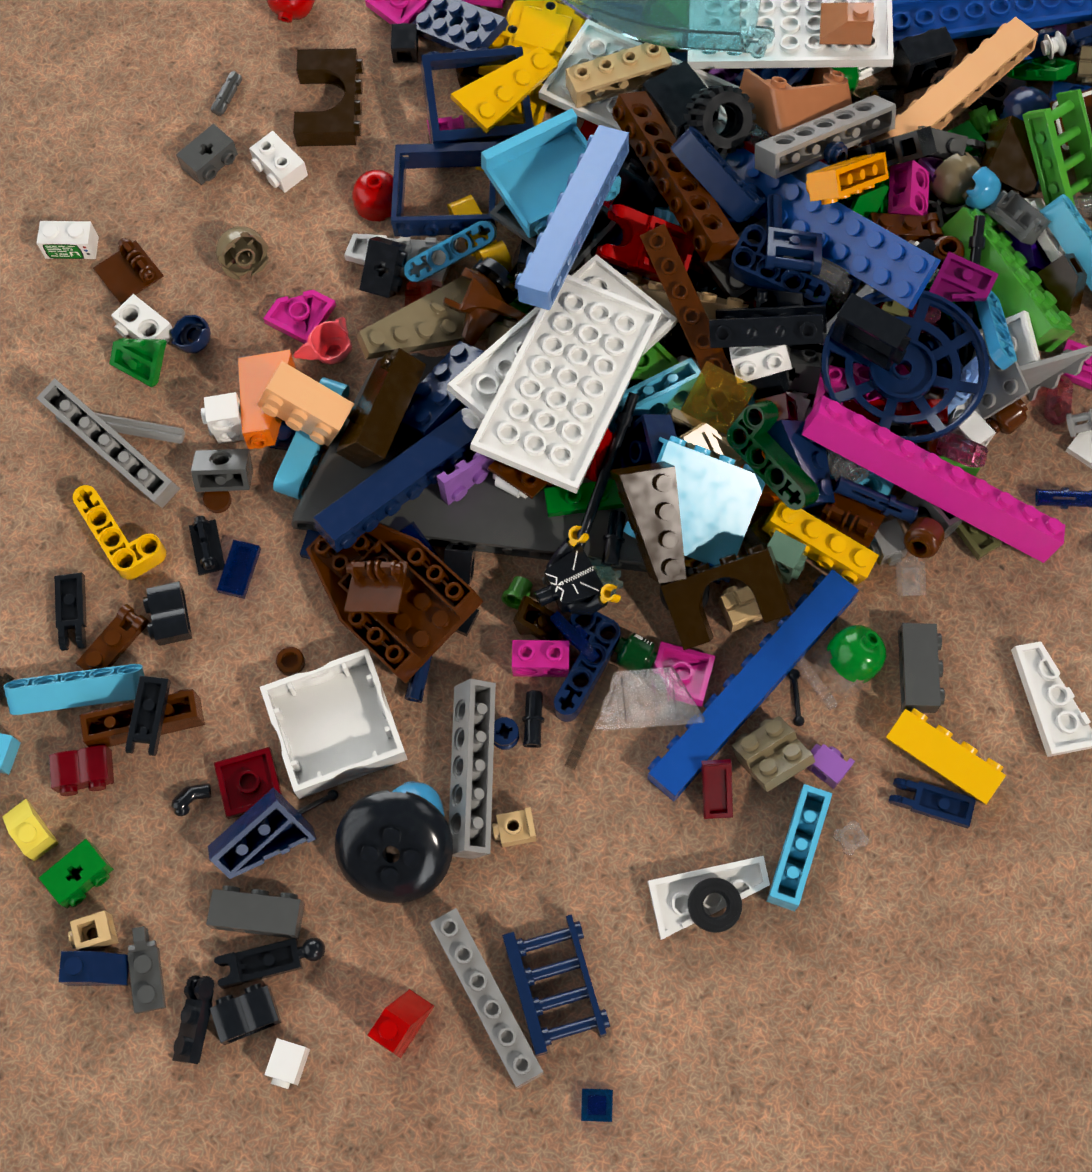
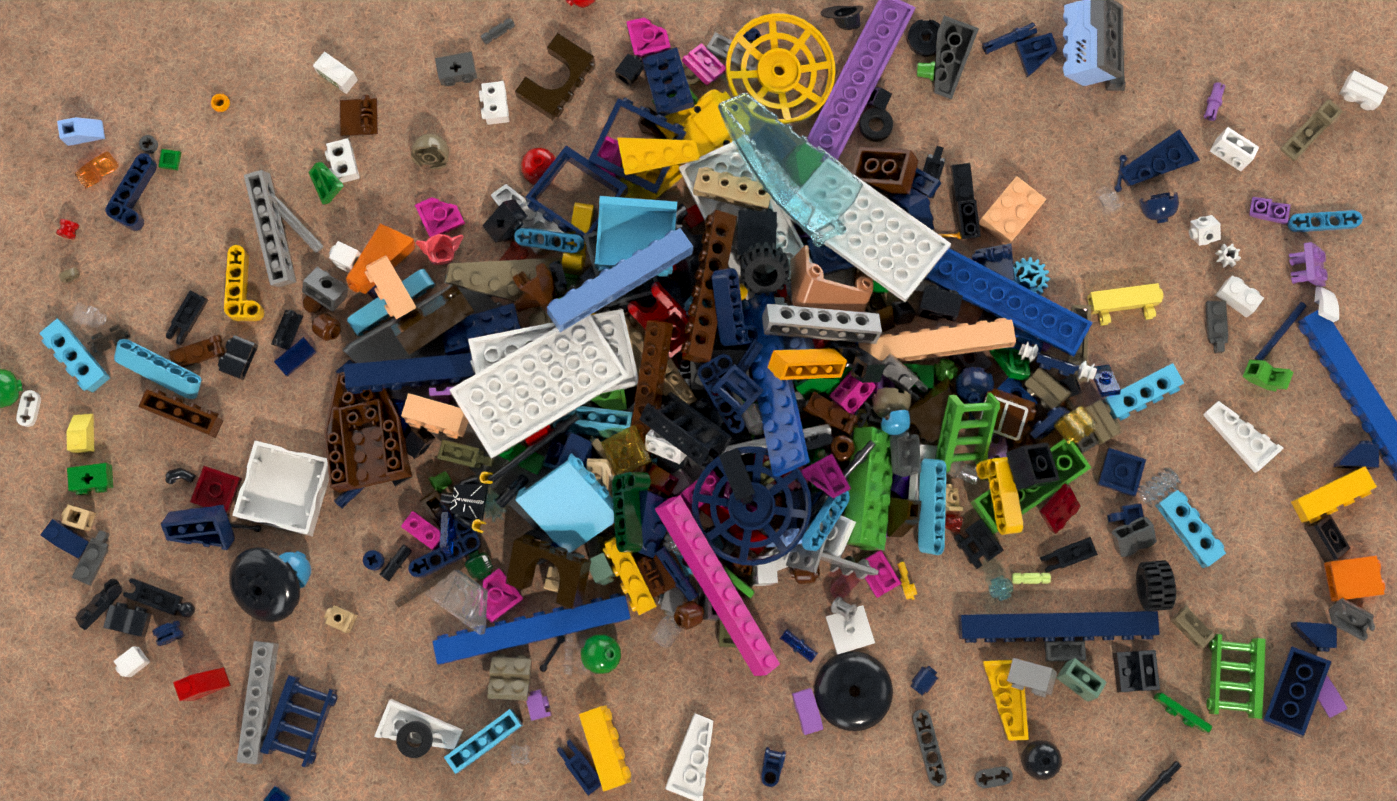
camera: 30 degrees right, 10 degrees up
(81, 769) = (131, 418): dark red brick -> none
(148, 713) = (181, 416): black hinge -> none
(194, 328) = (370, 181): dark blue hair -> none
(253, 511) = (326, 327): none -> reddish brown head
(255, 912) = (170, 567): dark grey brick -> none
(290, 661) = (287, 433): reddish brown tile -> none
(310, 992) = (168, 633): none -> dark blue wheel
(375, 586) = (354, 427): reddish brown hinge -> none
(464, 510) = (434, 416): none -> light nougat brick
(472, 768) = (339, 569): light grey brick -> none
(527, 537) = (463, 455): none -> olive hinge
(654, 516) = (532, 493): wedge -> none
(717, 789) = (464, 676): dark red tile -> none
(835, 153) = (817, 340): dark blue plate -> none
(847, 23) = (898, 253): nougat slope -> none
(920, 667) = (632, 687): dark grey brick -> none
(962, 450) = (745, 580): clear pink beam -> none

